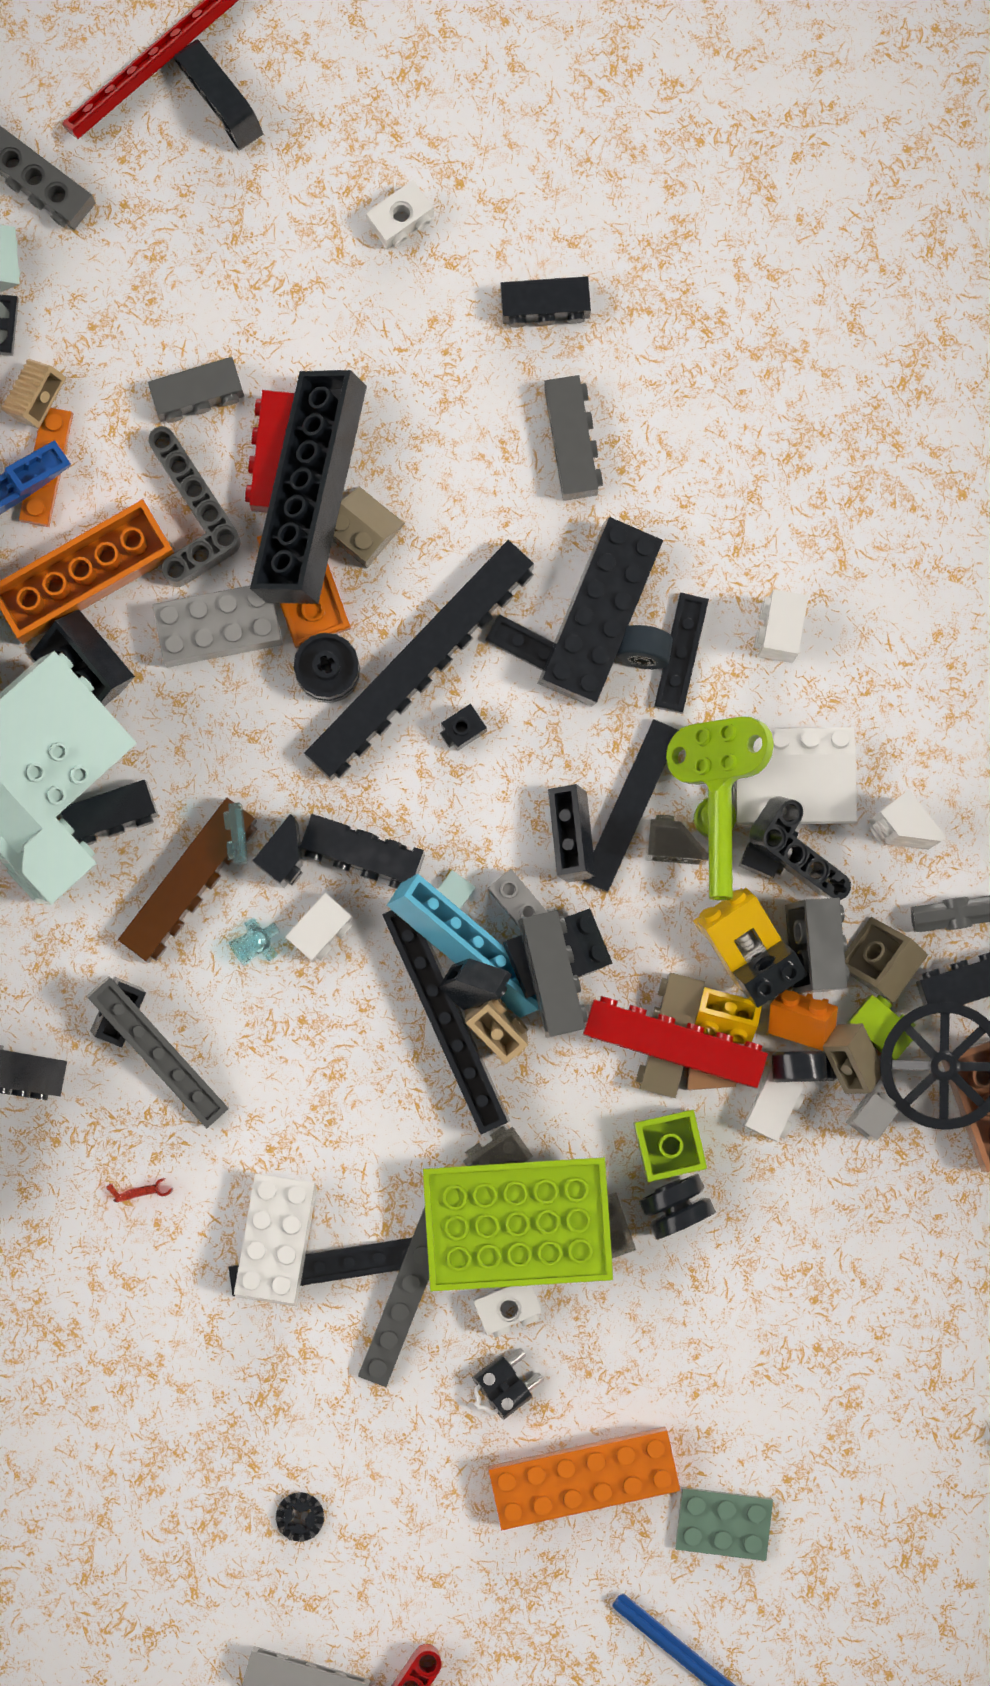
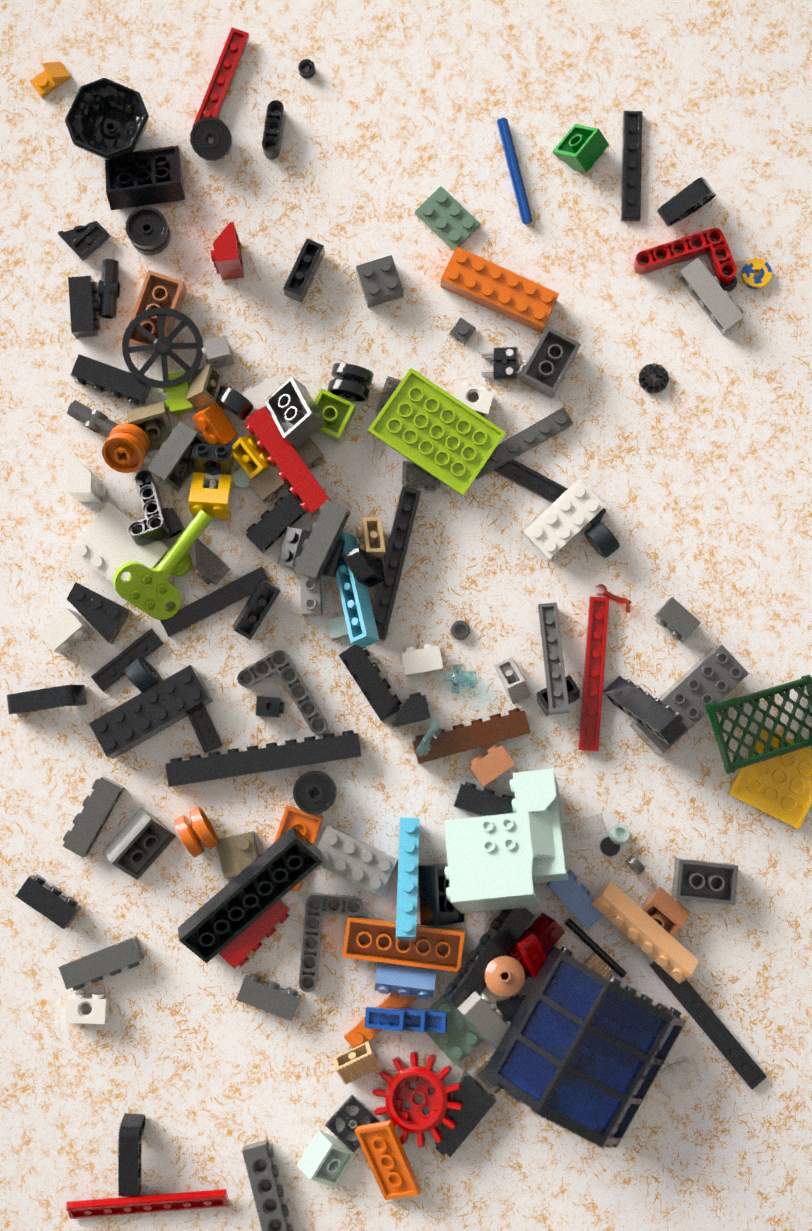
camera: 140 degrees left, 0 degrees up
(40, 1222) = (676, 619): none -> dark grey brick
(47, 530) = (405, 980): none -> medium blue brick
(94, 1075) = (593, 674): none -> red plate
(134, 649) = (407, 879): none -> medium azure brick
(136, 862) = (491, 765): none -> nougat brick
(189, 988) = (512, 680): none -> light grey slope
(208, 1250) = (602, 539): none -> black wheel
(301, 1002) = (460, 630): none -> dark grey tile
(425, 279) = (100, 963): none -> dark grey brick
(431, 512) = (196, 832): none -> orange wheel
(446, 1431) = (549, 362): none -> dark grey brick
(457, 772) = (297, 682): none -> dark grey beam
(491, 447) = (139, 844): none -> dark grey slope
(590, 1389) = (462, 331): none -> dark grey plate
(633, 958) = (275, 522): none -> black brick
(714, 1110) = (294, 412): none -> dark grey brick
(719, 980) = (241, 479): none -> light aqua tile
(738, 530) = (46, 699): none -> black beam
(744, 1370) = (379, 281): none -> dark grey brick
(762, 684) = (99, 611): none -> black wedge
(850, 1308) = (304, 270): none -> black brick
(888, 905) = (126, 448): none -> orange wheel
(960, 1251) = (227, 254): none -> red slope

